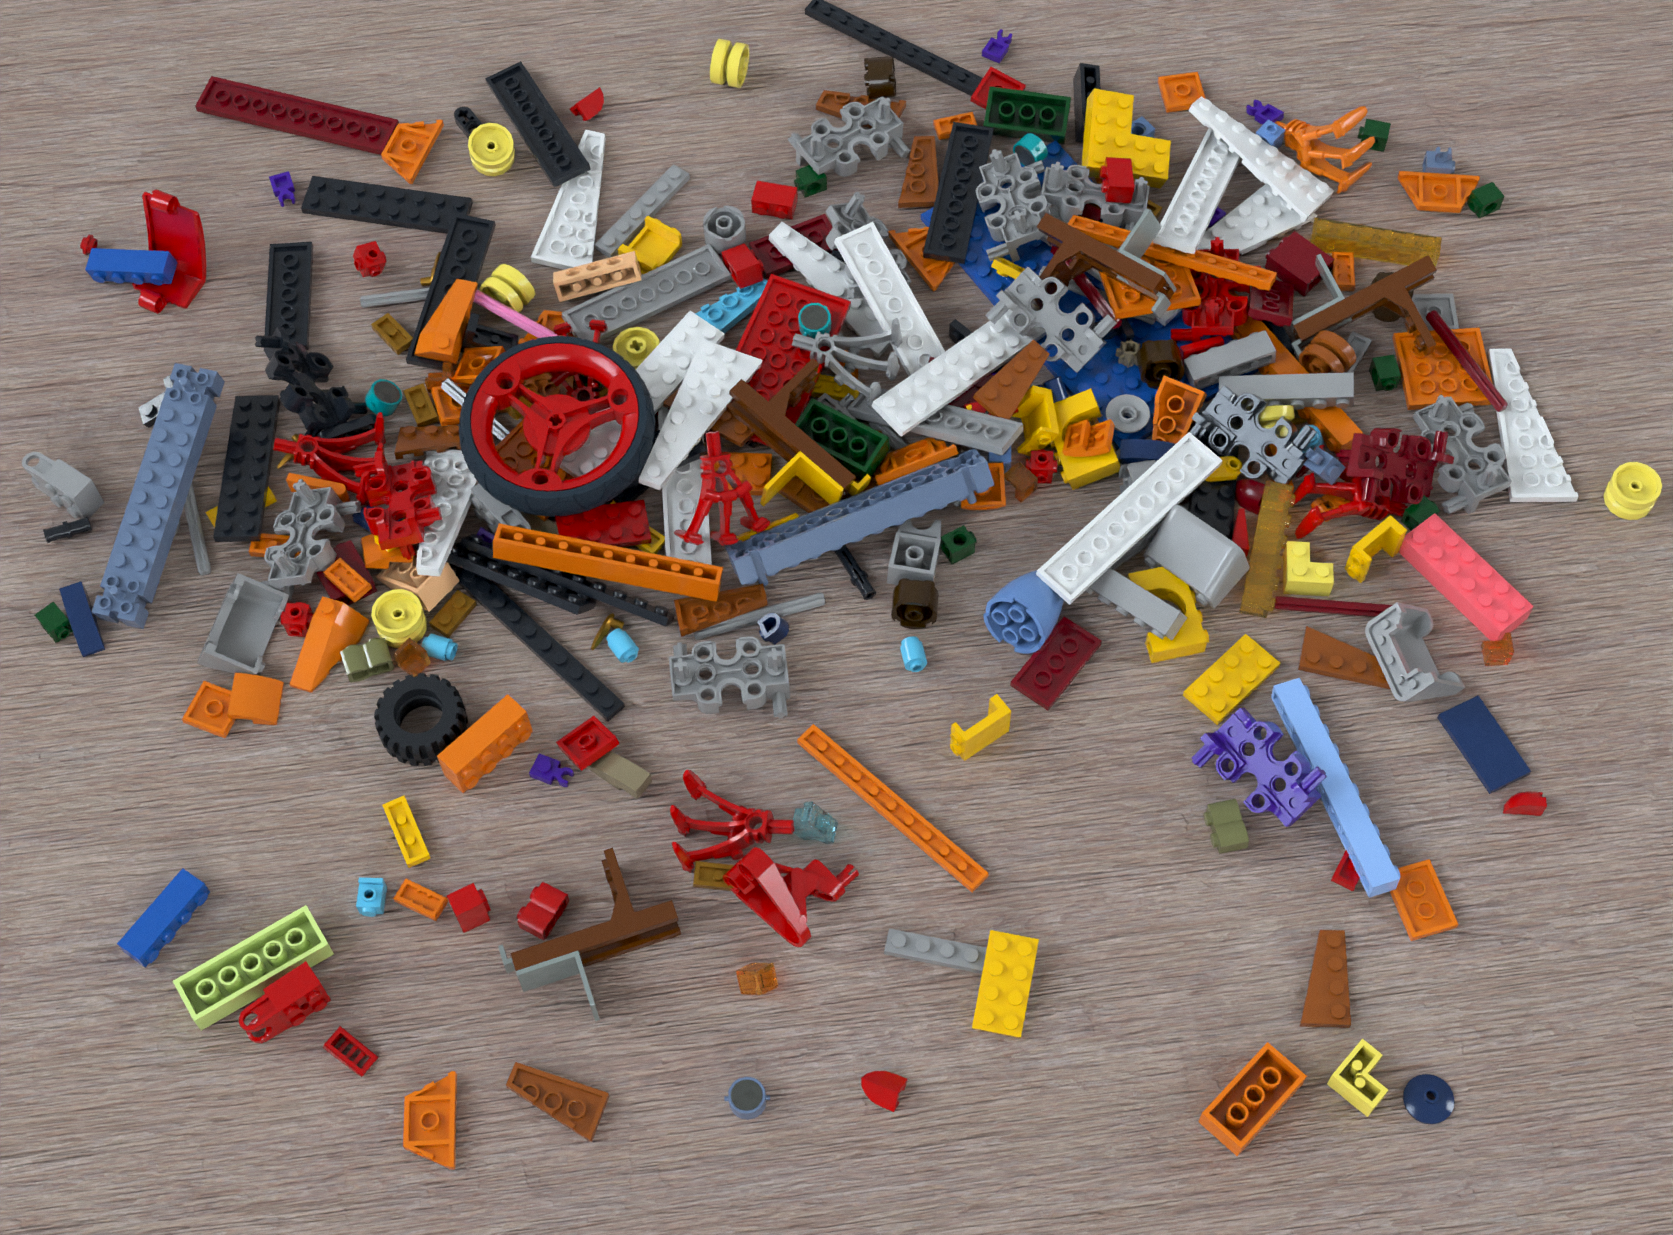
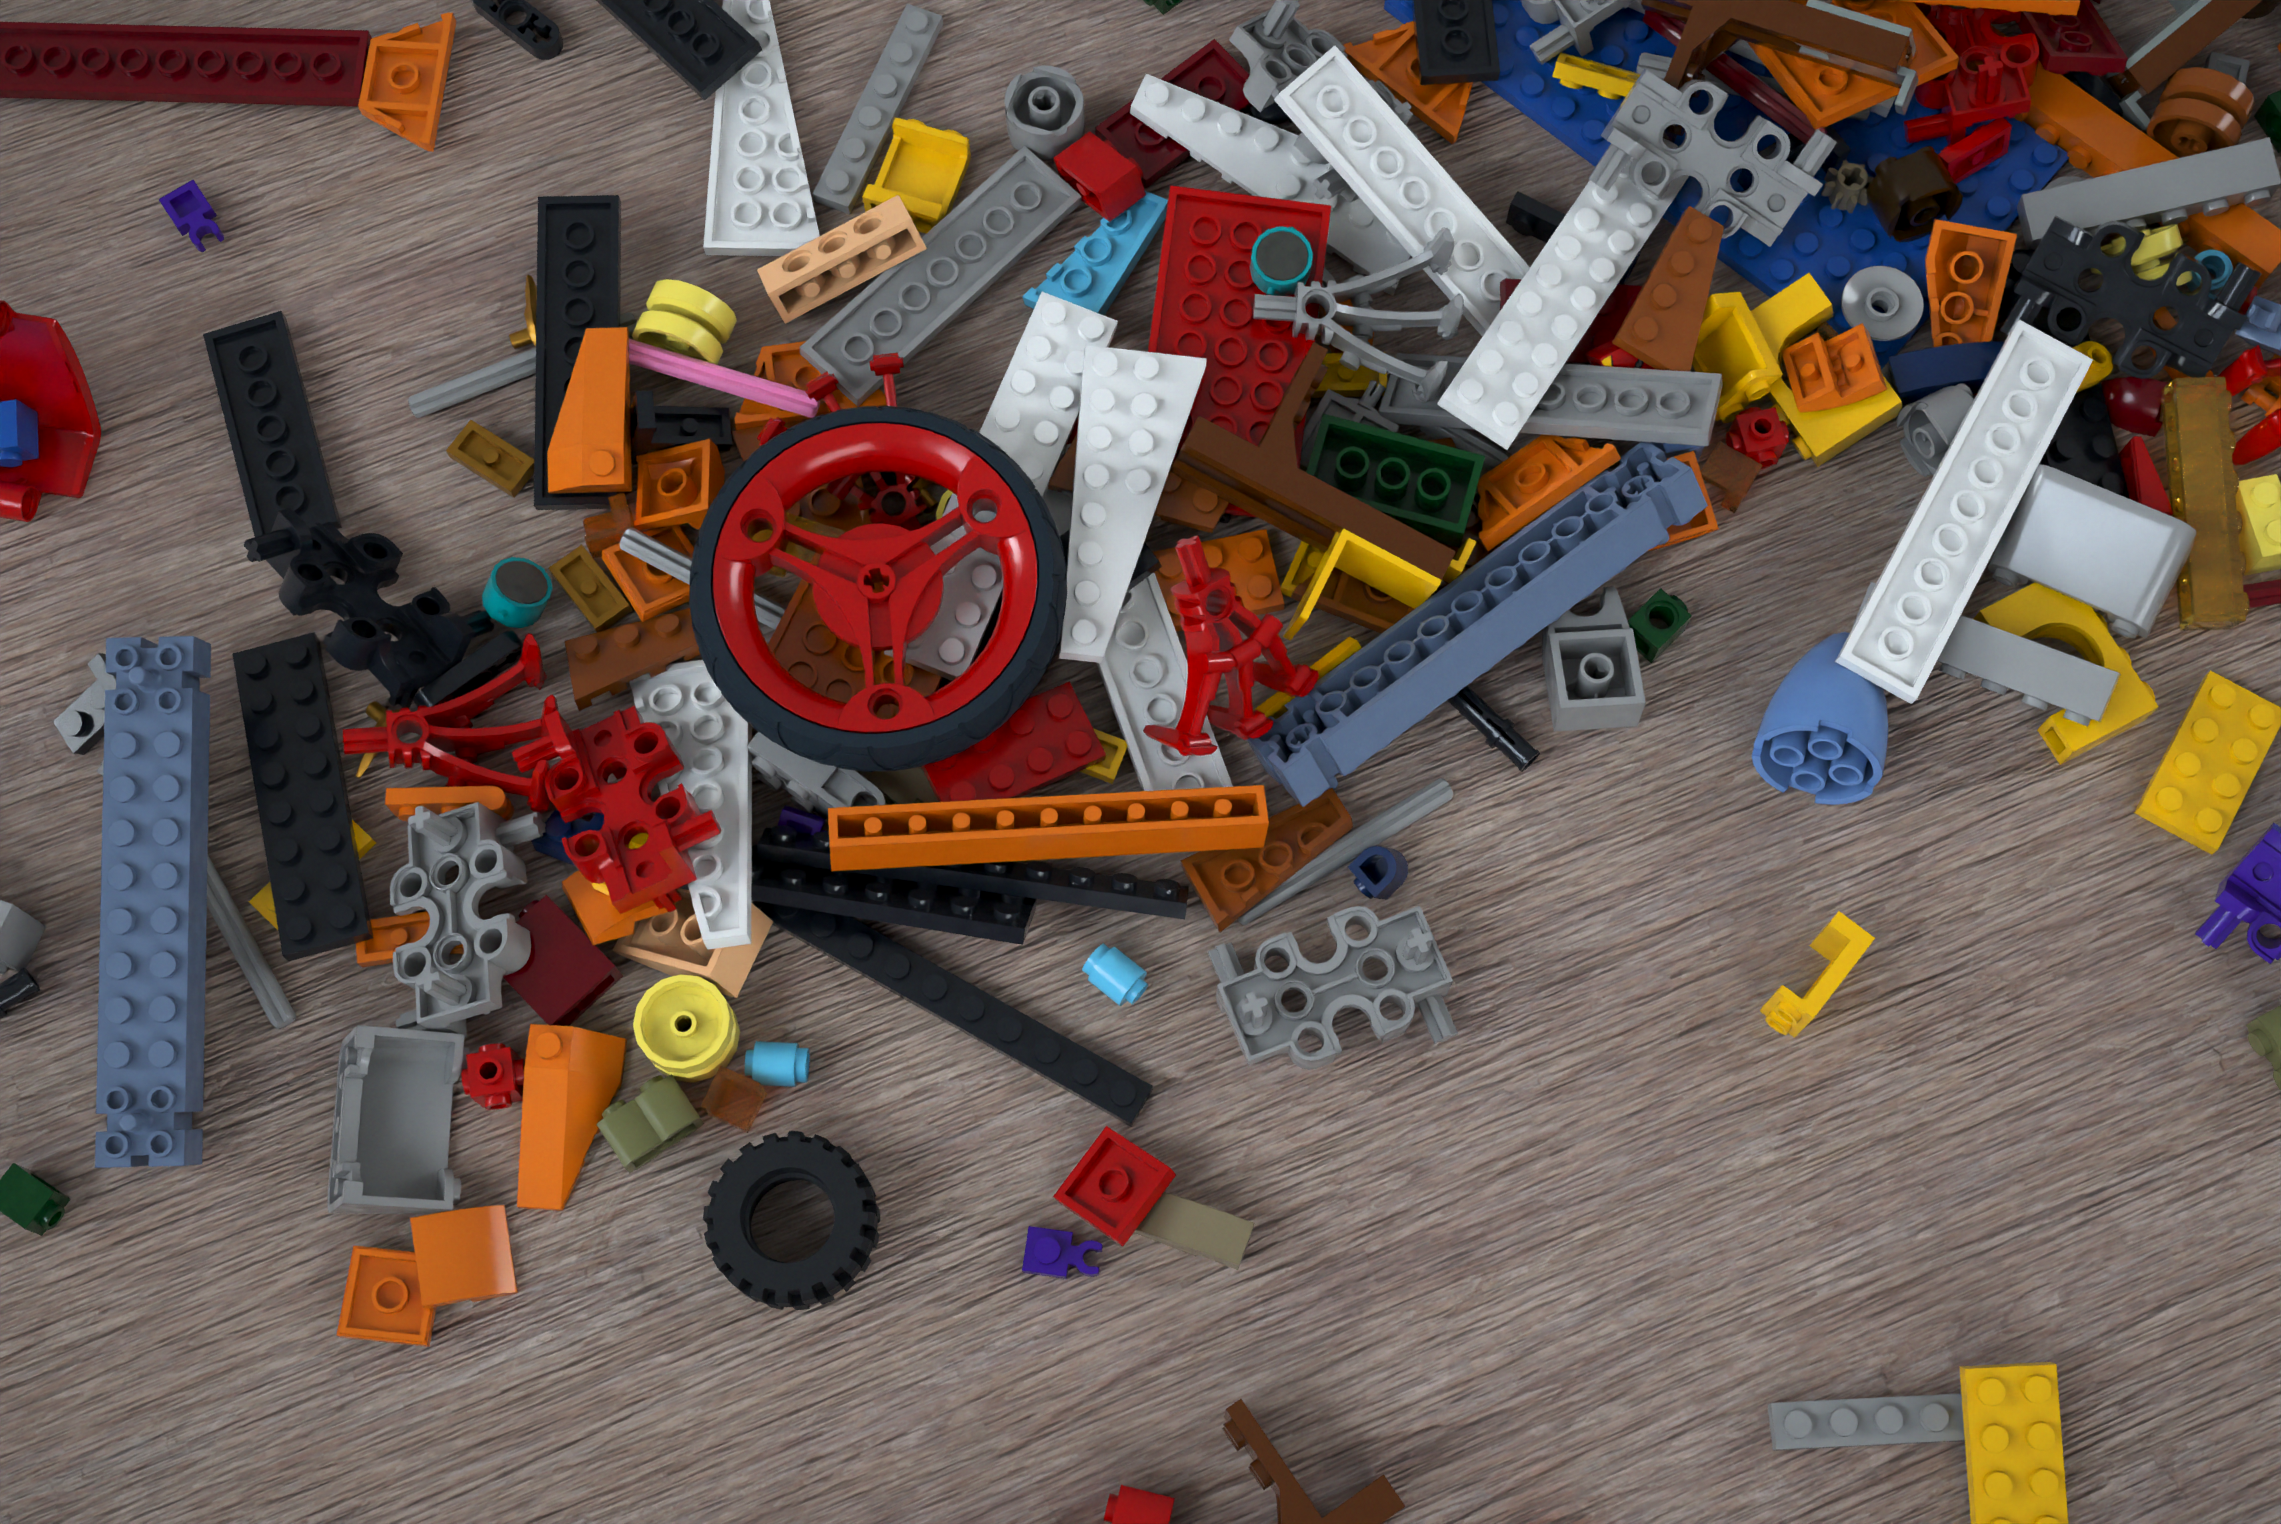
camera: 15 degrees left, 10 degrees up
(82, 619) = (72, 1174): dark blue slope -> none
(347, 580) = (568, 981): orange plate -> none
(369, 259) = (403, 322): red brick -> none
(383, 204) = (394, 204): black plate -> none
(406, 831) = (831, 1447): yellow plate -> none
(452, 613) = (779, 987): pearl gold plate -> none
(485, 744) = (929, 1240): orange brick -> none
(491, 149) = (558, 29): light yellow wheel -> none
(604, 629) = (1074, 934): pearl gold bar -> none
(635, 344) = (960, 383): light yellow wheel -> none
(711, 875) = (1433, 1384): pearl gold plate -> none
(739, 832) = (1509, 1272): red piece -> none
(774, 200) = (1114, 33): red brick -> none
(787, 892) = (1555, 1394): red connector -> none
(814, 823) = (1575, 1238): clear light blue brick -> none
(893, 808) = (1703, 1166): orange plate -> none
(913, 654) = (1644, 858): medium azure brick -> none
(915, 603) = (1621, 761): dark brown brick -> none
(1056, 663) = (1901, 821): dark red plate -> none
(1057, 388) = (1739, 278): dark blue piece -> none
(1229, 360) = (2031, 157): light grey brick -> none

